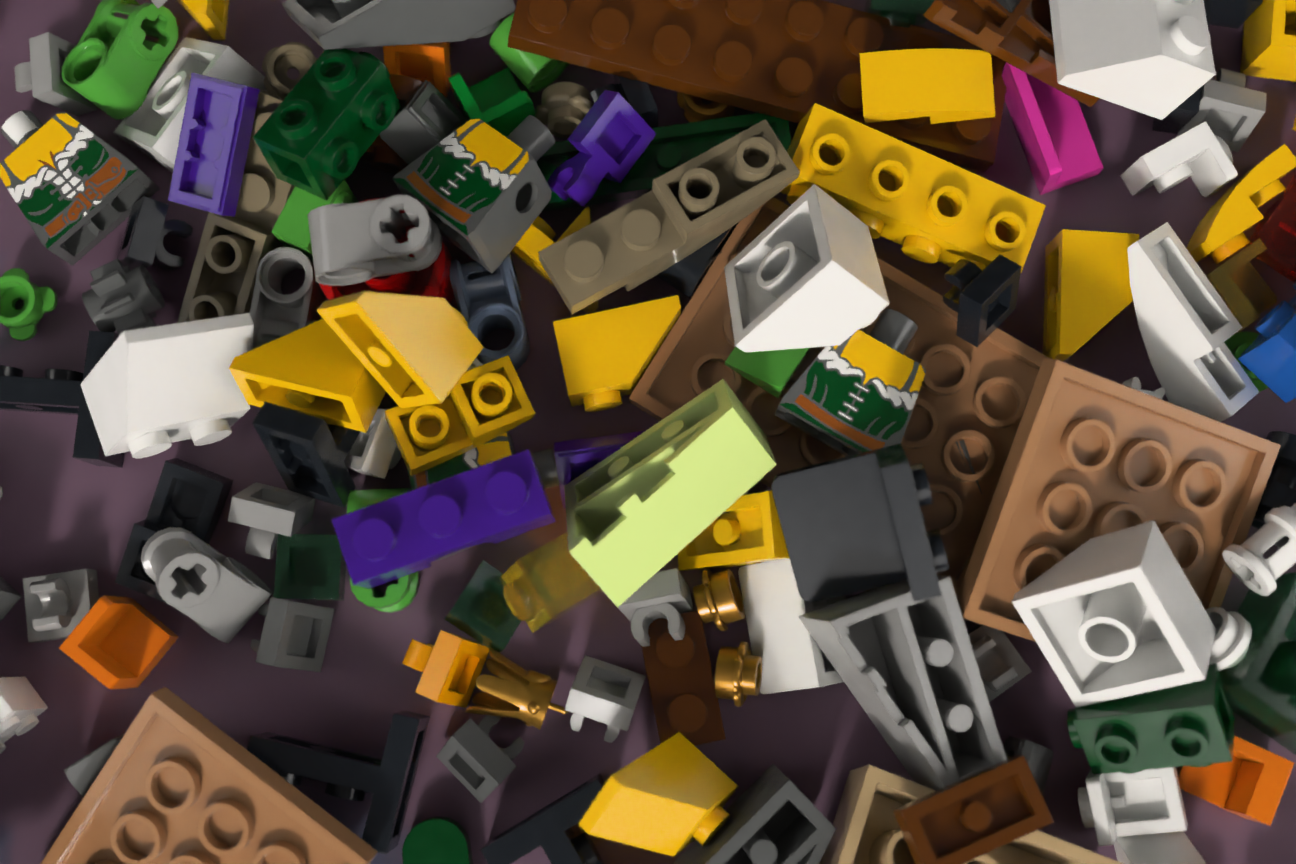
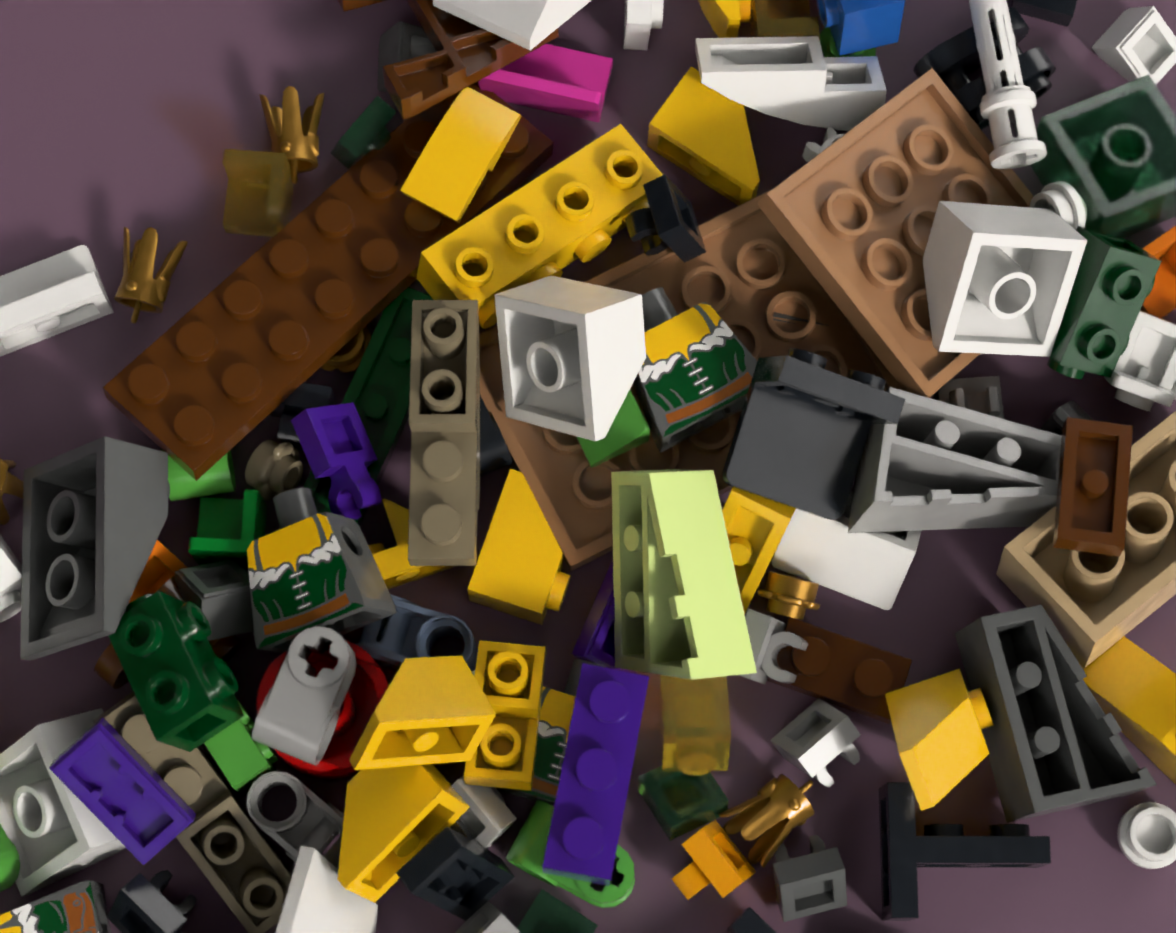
camera: 65 degrees left, 5 degrees down
(280, 60) = (96, 670): dark tan plate -> none
(737, 673) = (863, 616): pearl gold plate -> none

